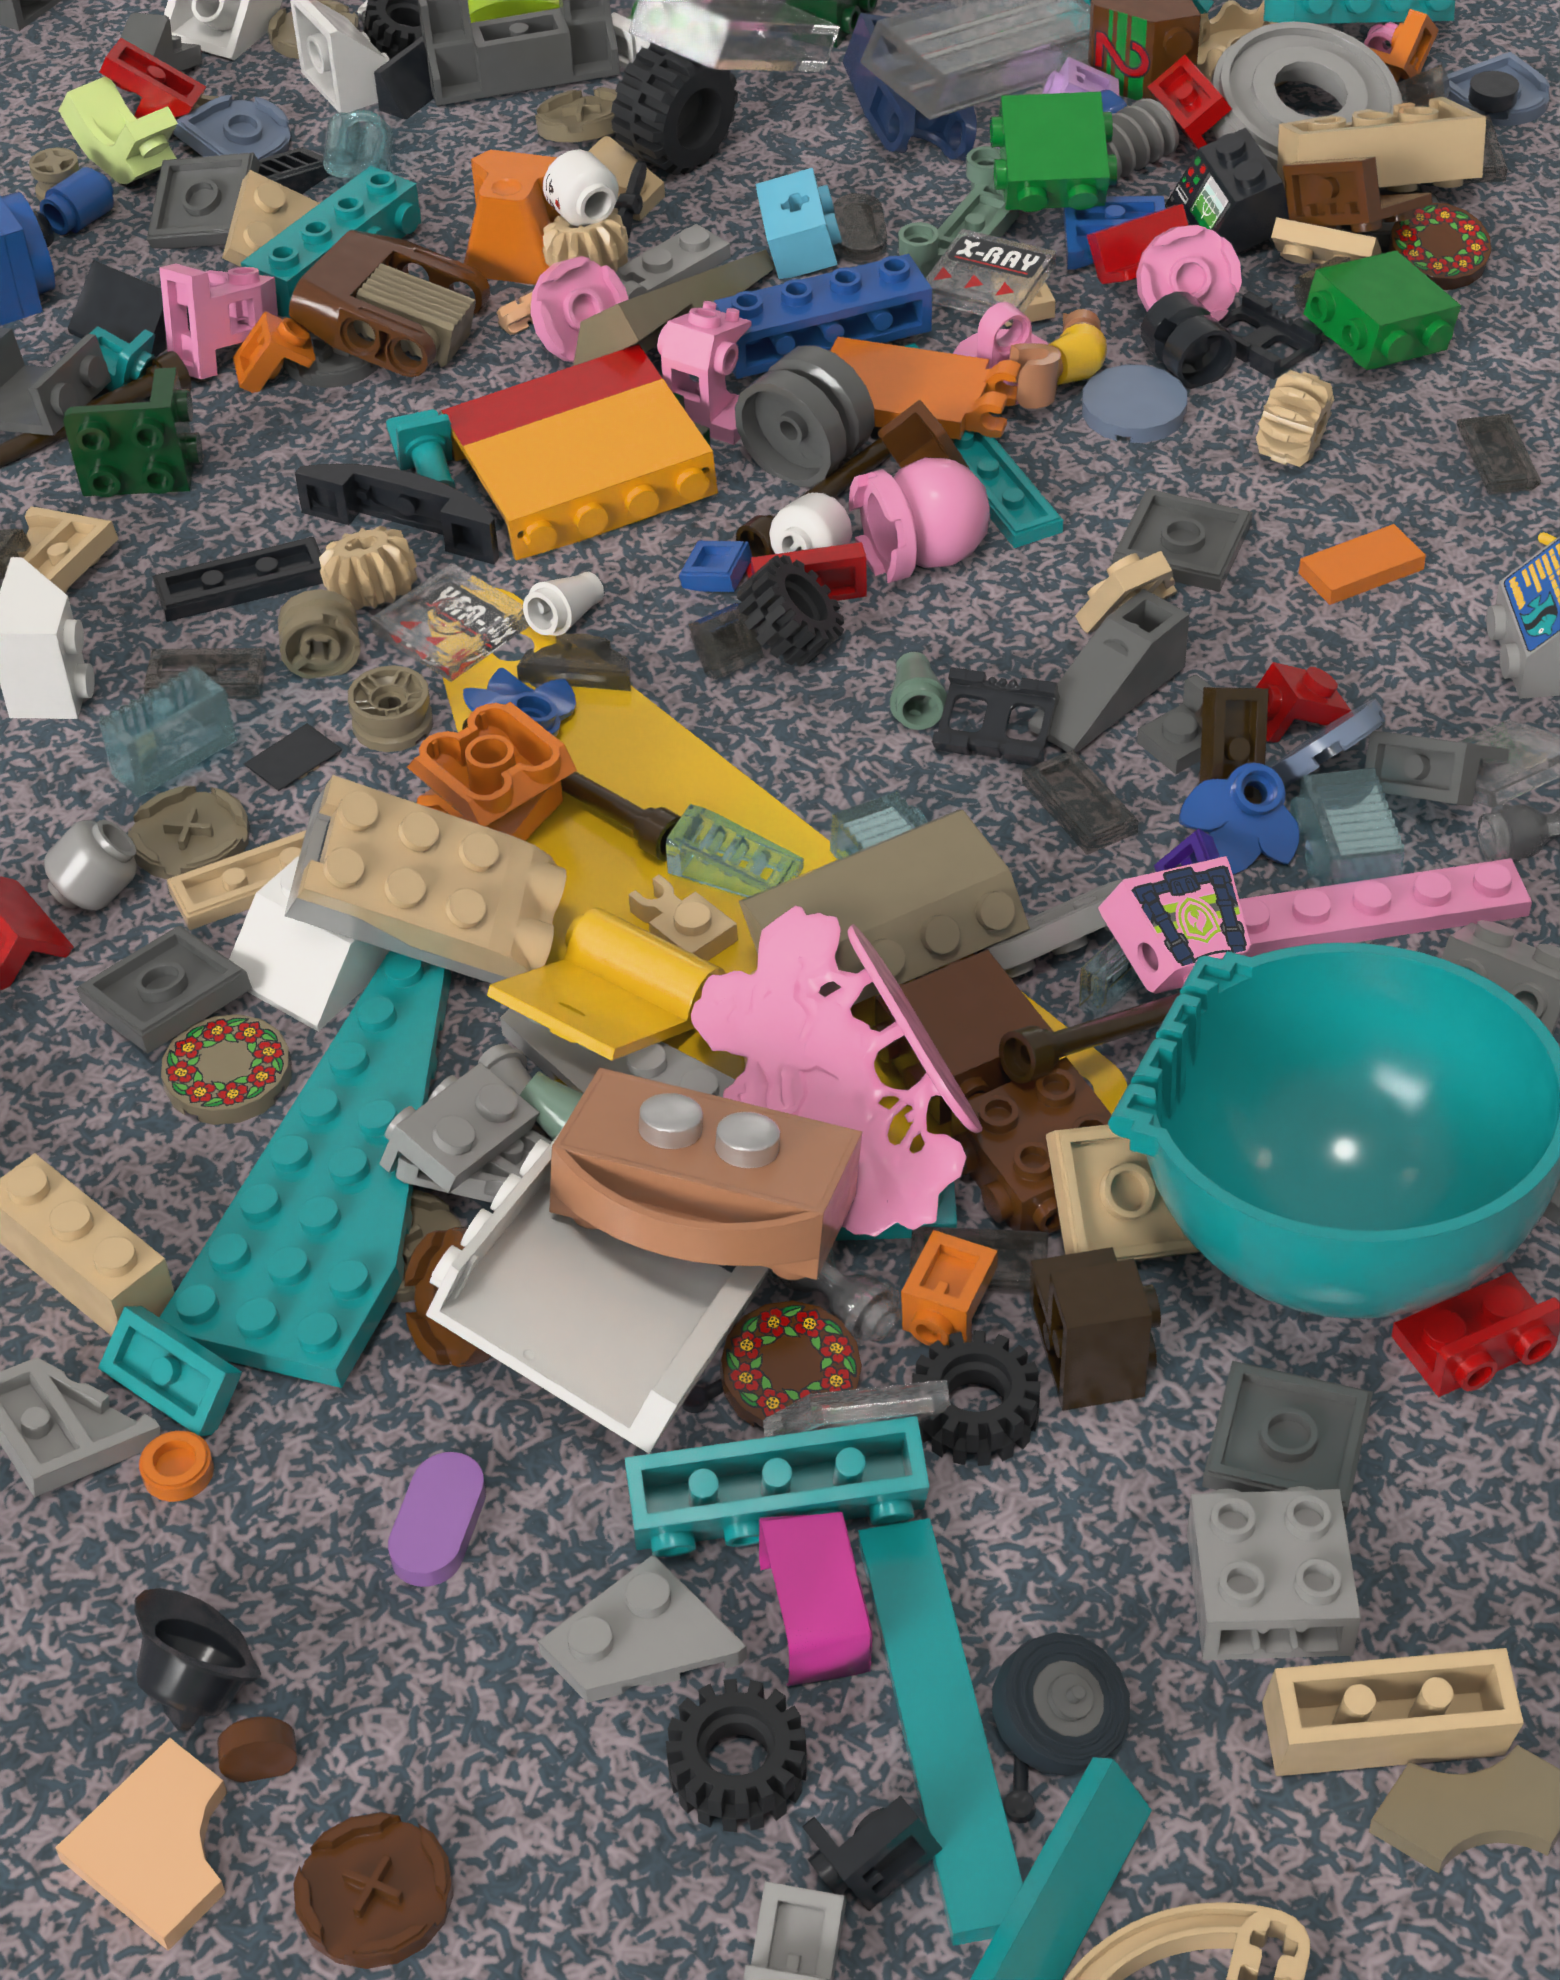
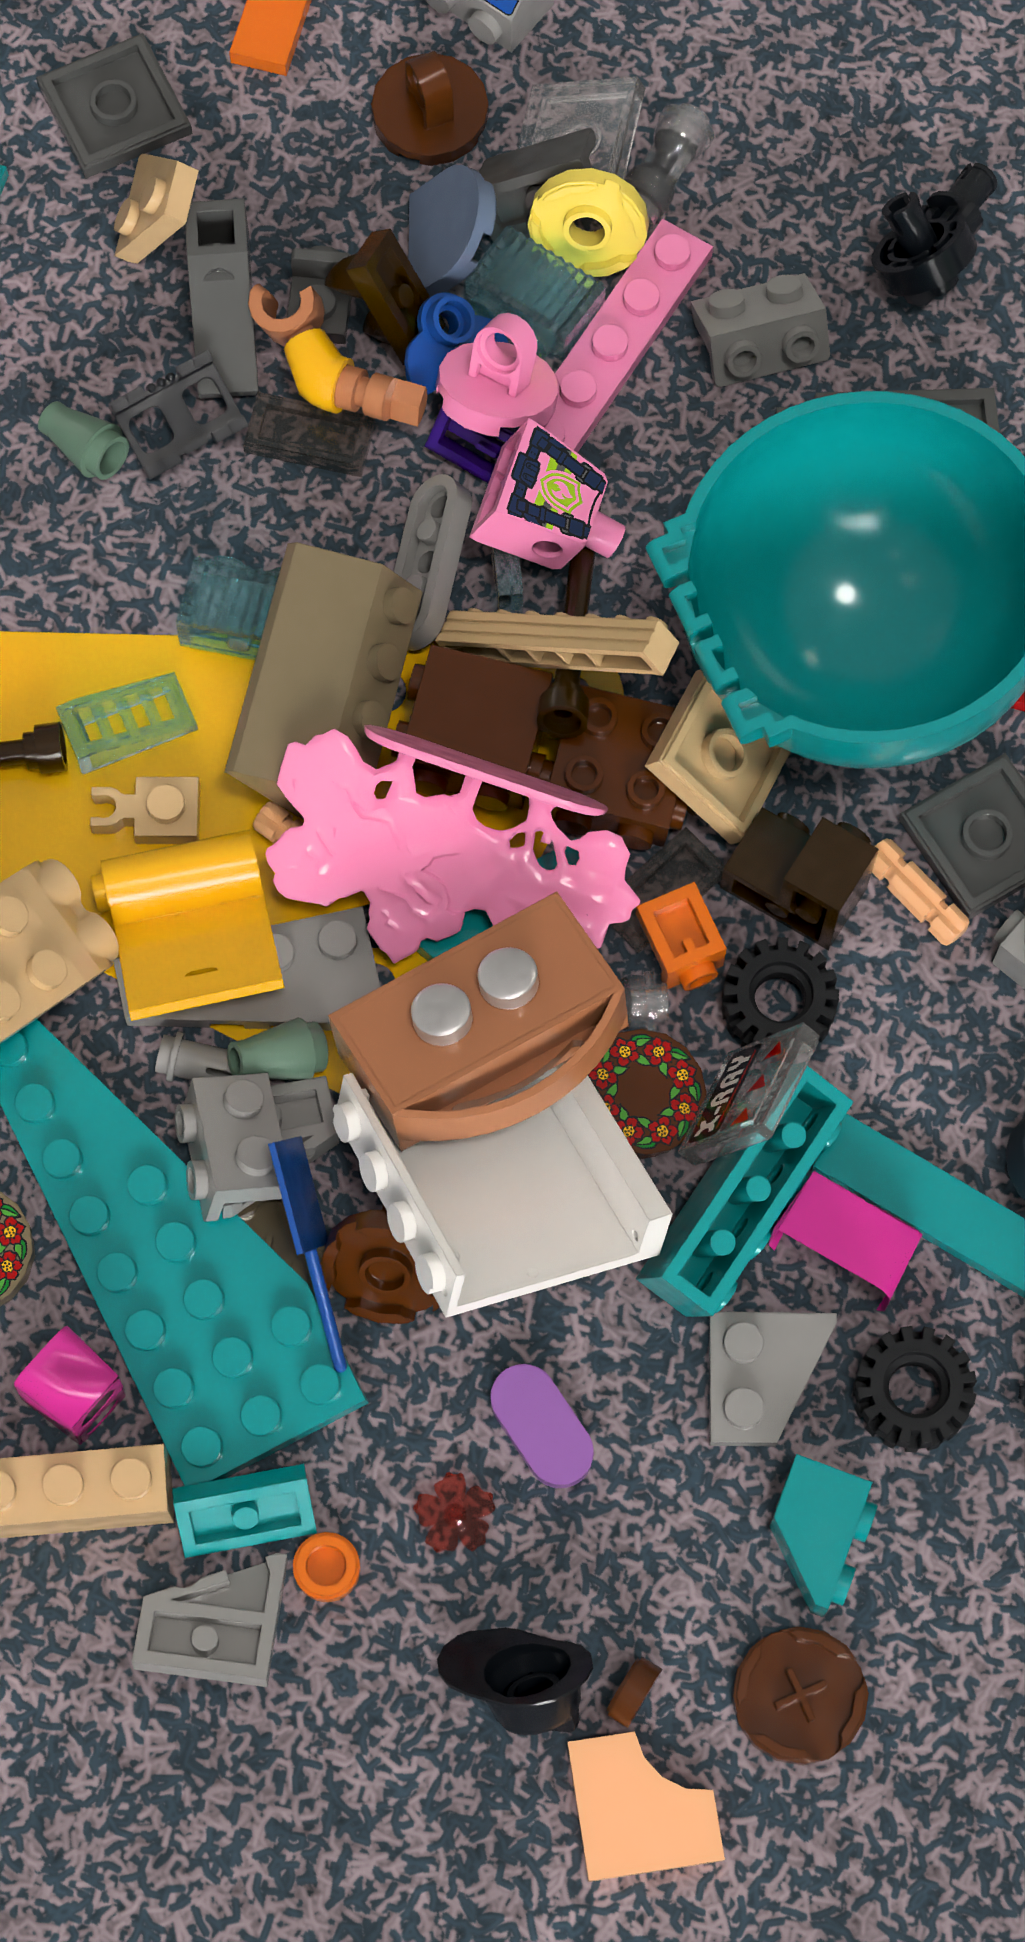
camera: 50 degrees left, 25 degrees up
(158, 1143) = (66, 1382): none -> dark pink piece
(304, 1520) = (455, 1514): none -> clear red plant
(437, 1192) = (306, 1229): none -> blue piece
(534, 1775) = (815, 1527): none -> teal slope
(1084, 1007) = (562, 640): none -> tan piece
(1126, 753) = (323, 373): none -> nougat piece
(1181, 1426) = (919, 893): none -> light nougat axle
(1249, 837) = (498, 382): none -> bright pink tile
(1299, 695) = (368, 199): red bracket -> none
(1413, 679) = (430, 108): none -> reddish brown tile
(1465, 801) = (595, 196): none -> light yellow tile

